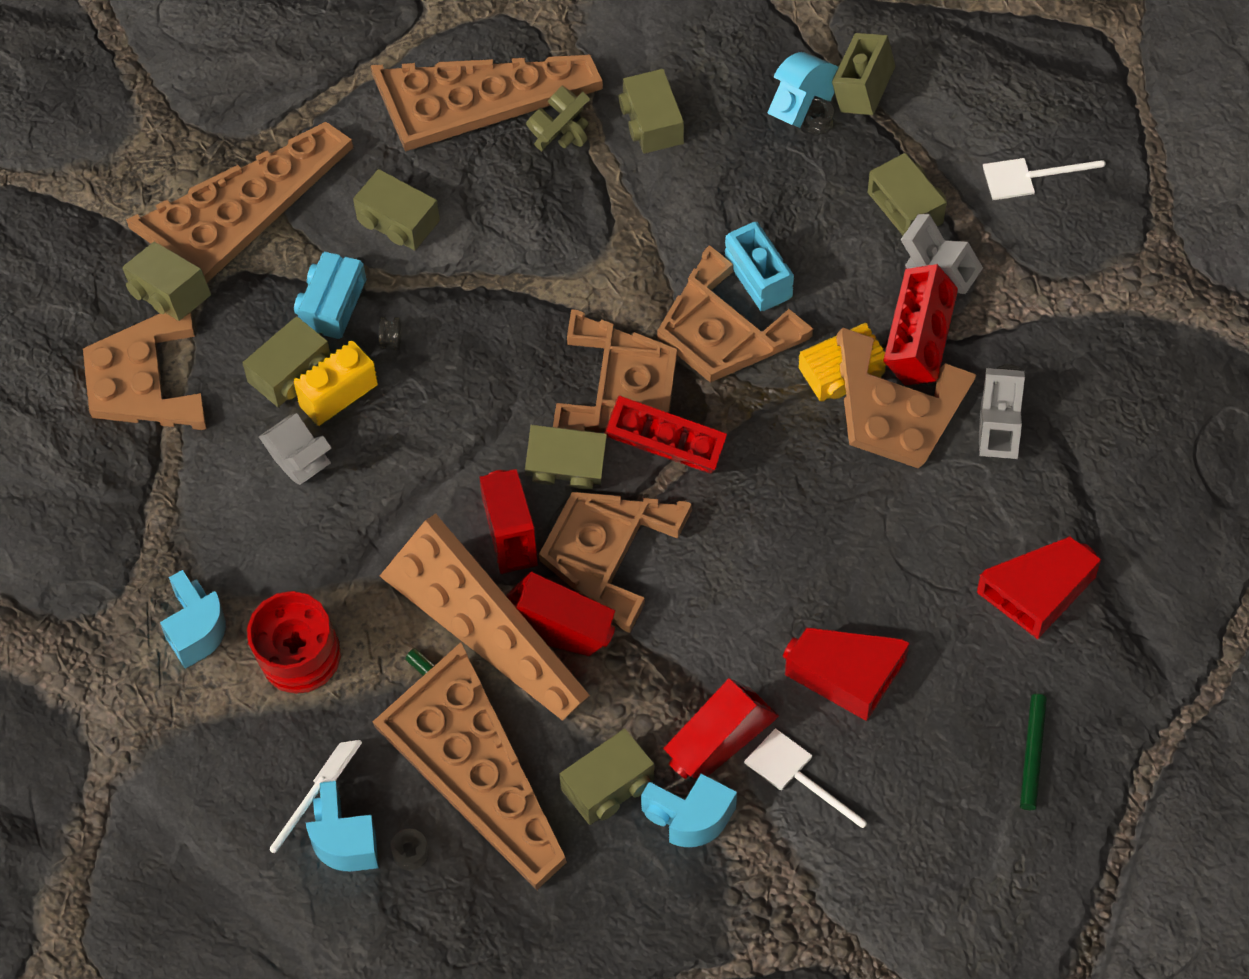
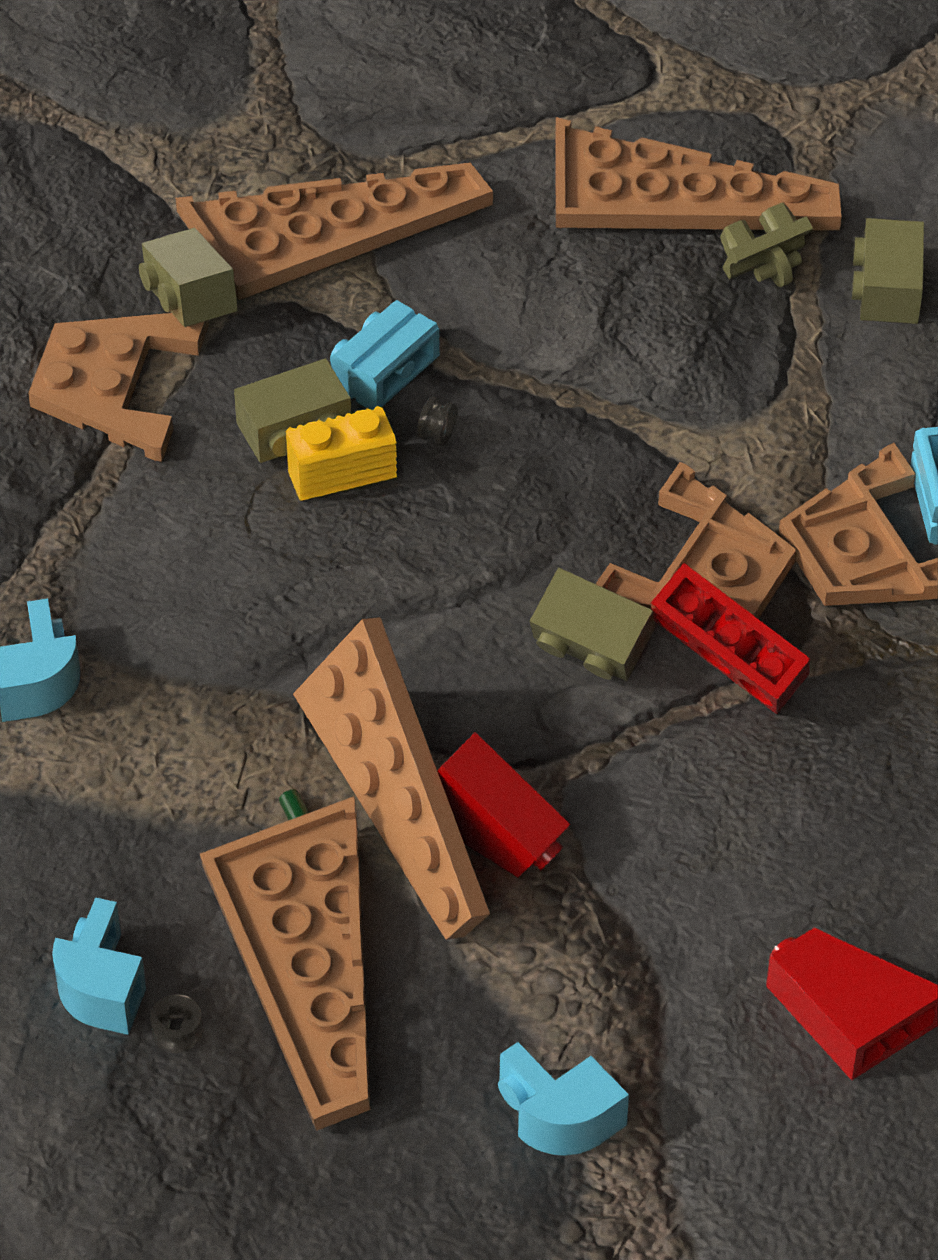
camera: 20 degrees right, 10 degrees down
(295, 625) = (143, 725): red wheel -> none
(296, 448) = (256, 511): light grey brick -> none
(328, 773) = (73, 918): white piece -> none
(396, 210) = (511, 285): olive brick -> none
(509, 520) = (482, 678): red slope -> none
(594, 539) = (587, 737): medium nougat wing -> none
(607, 777) = (468, 1022): olive brick -> none
(719, 730) = (644, 1014): red slope -> none
(781, 760) = (715, 1086): white piece -> none

